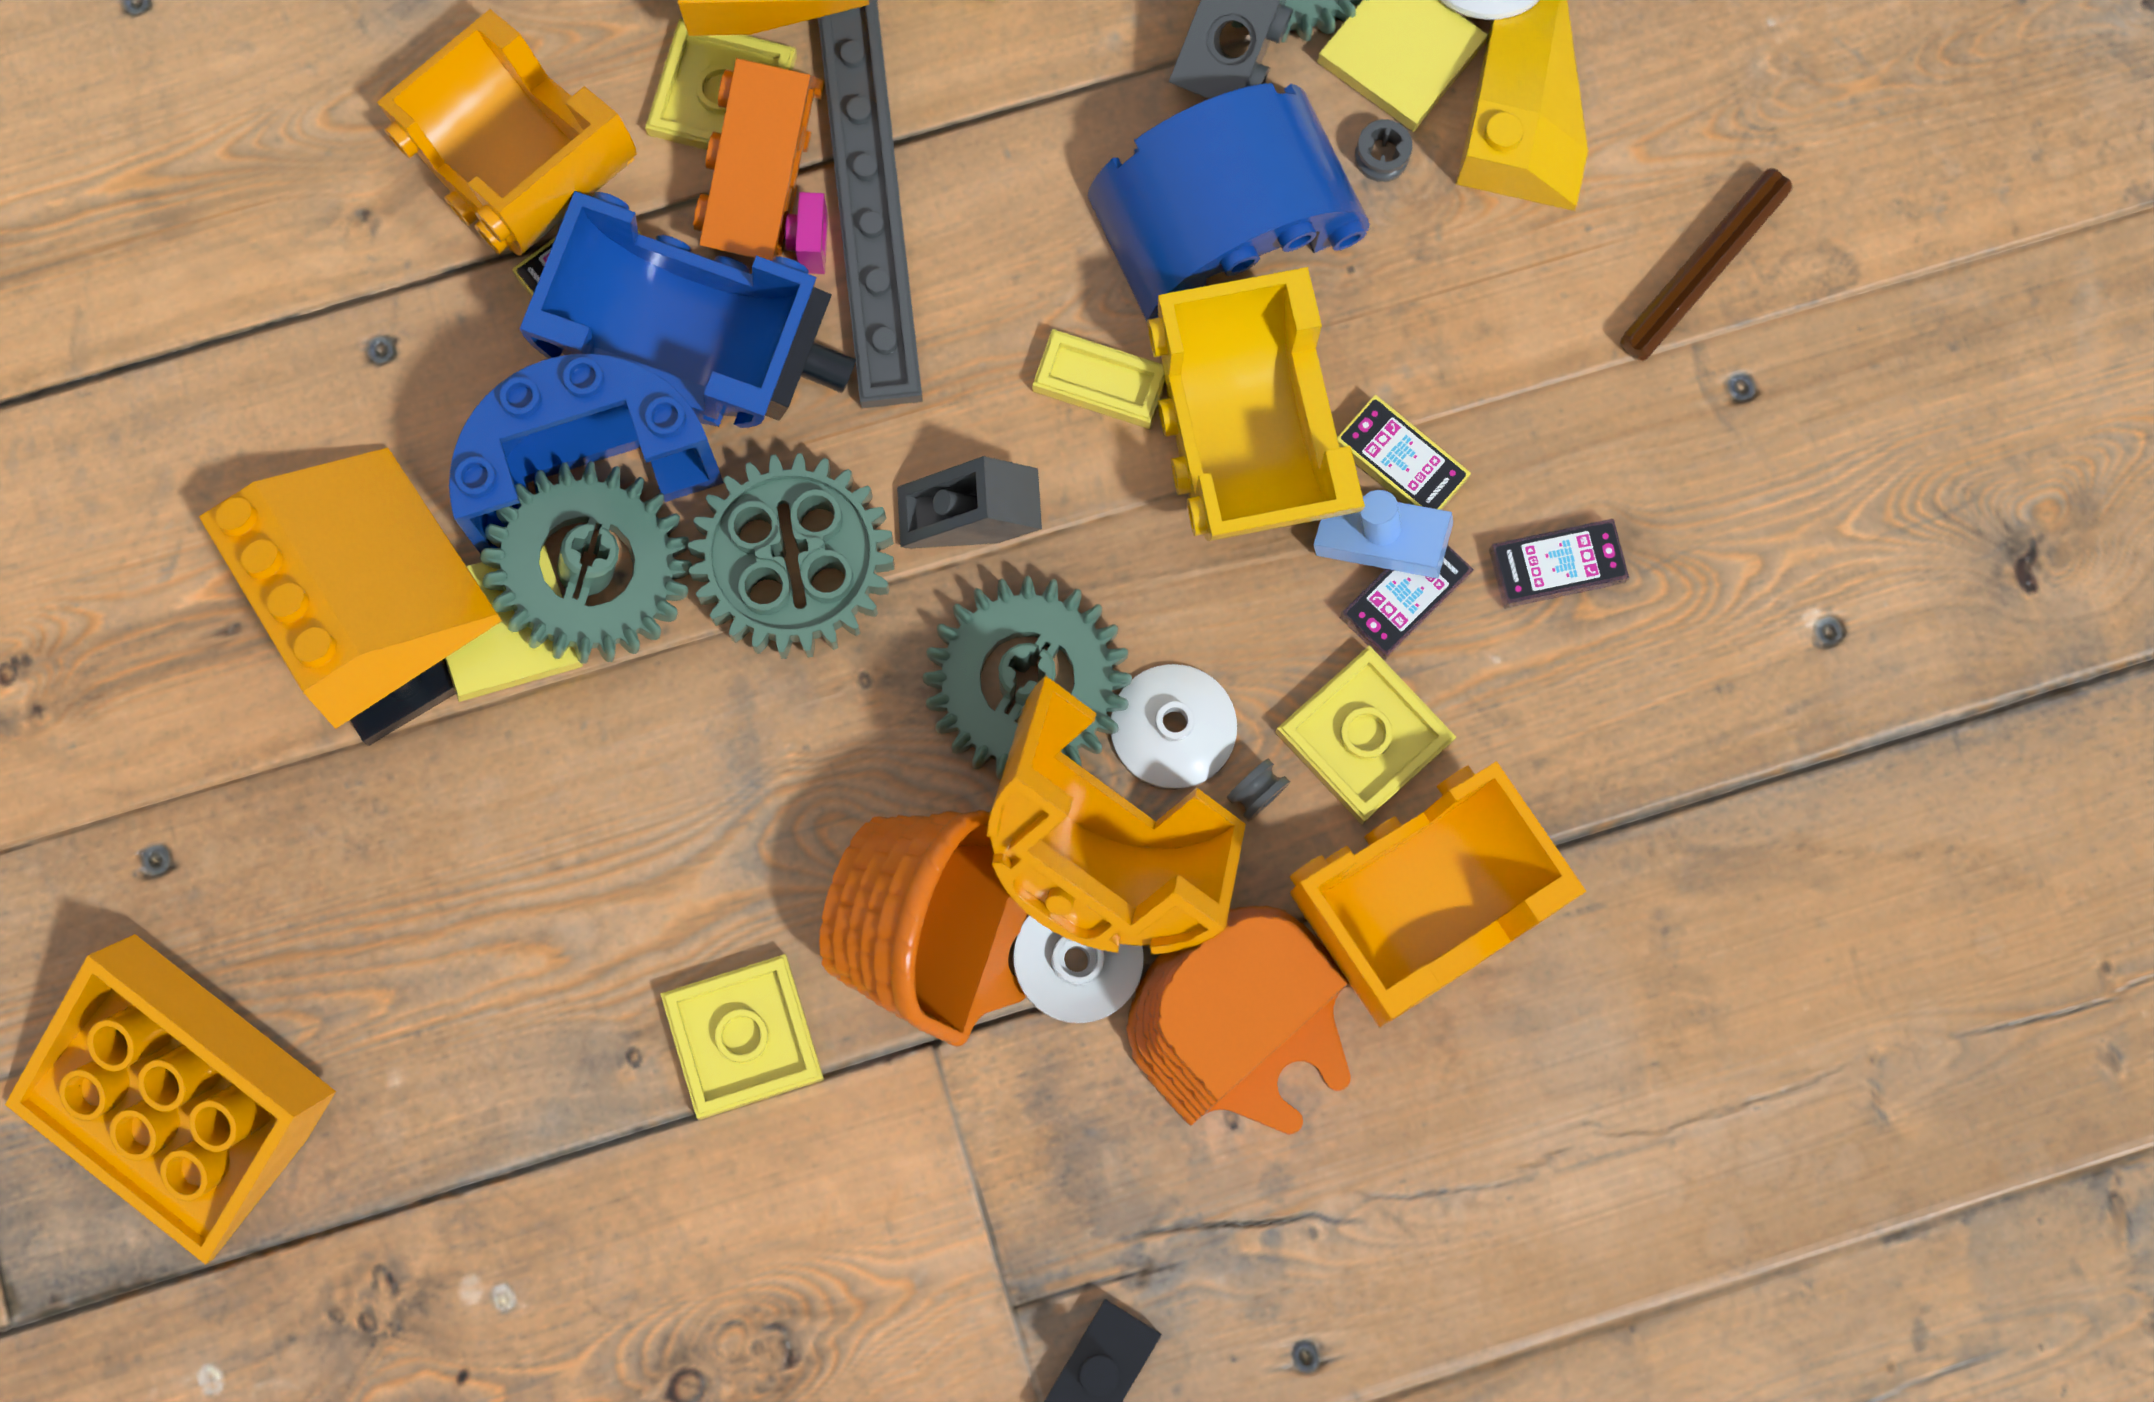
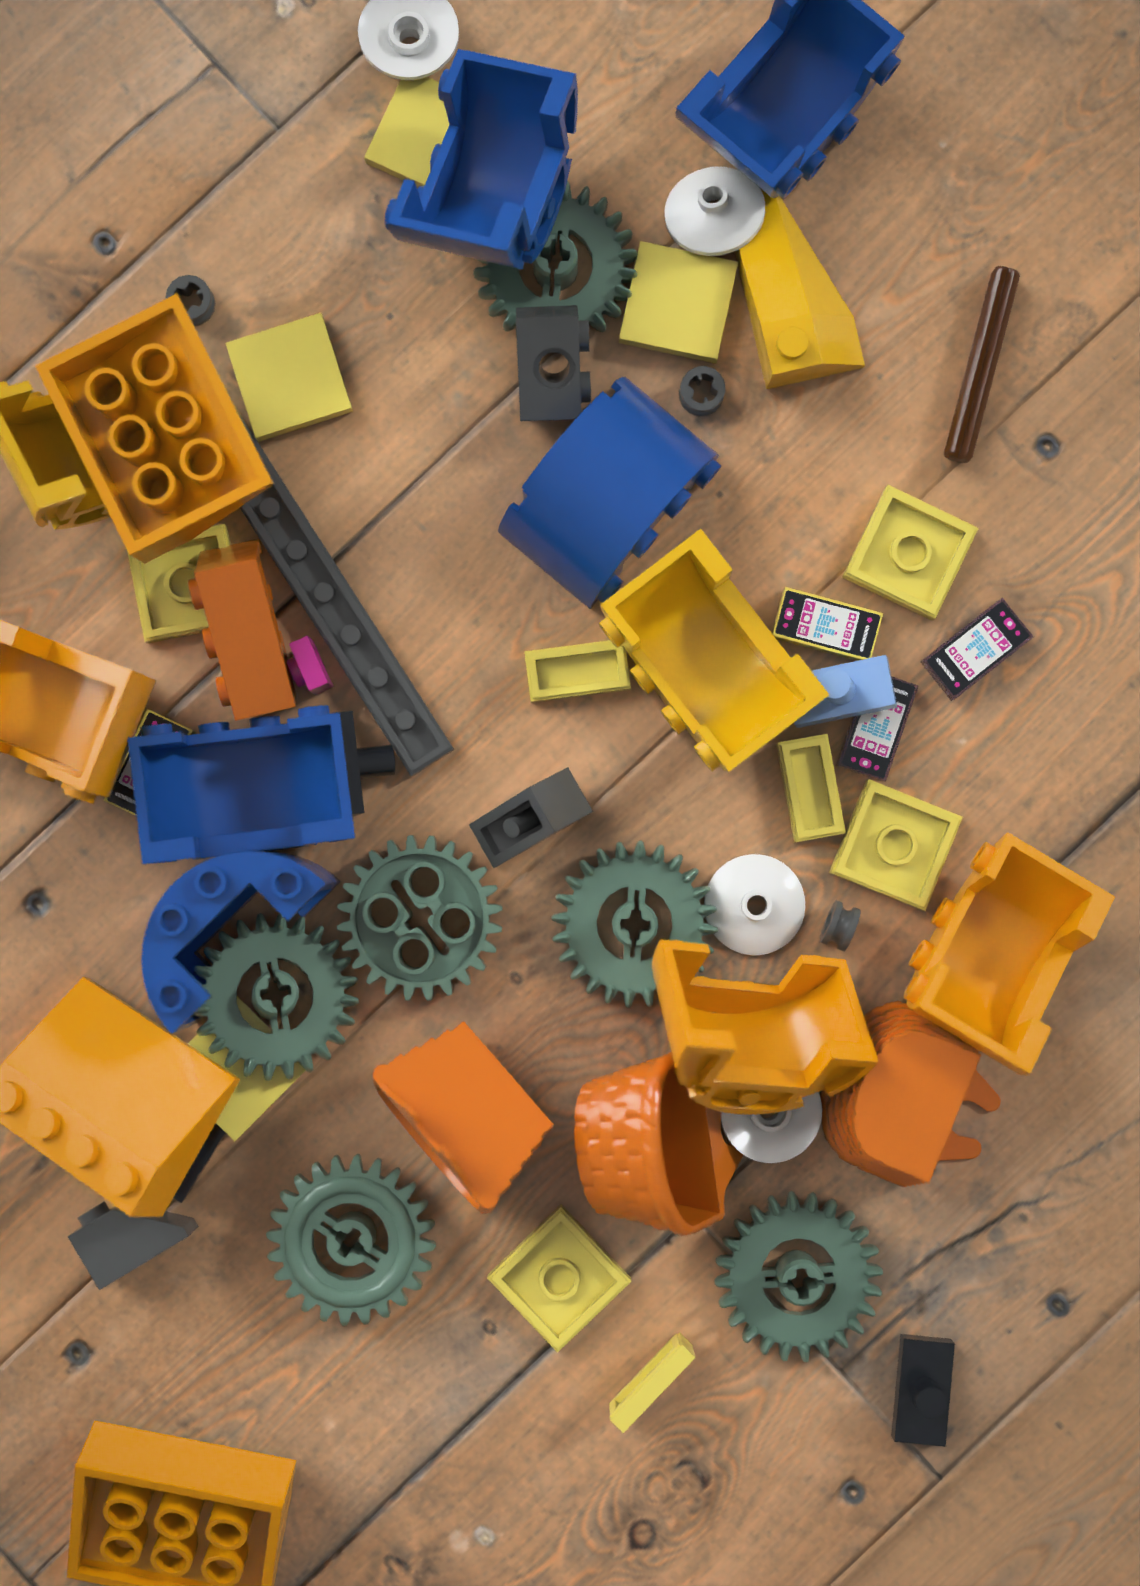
camera: 20 degrees left, 10 degrees up
(276, 749) = (116, 1243): none -> dark grey slope
(558, 924) = (309, 1210): none -> sand green gear
(729, 777) = (464, 1113): none -> orange piece
(786, 1202) = (651, 1382): none -> light yellow tile
(958, 1142) = (848, 1273): none -> sand green gear
(1299, 627) = (810, 788): none -> light yellow tile
(1532, 426) = (910, 552): none -> light yellow tile

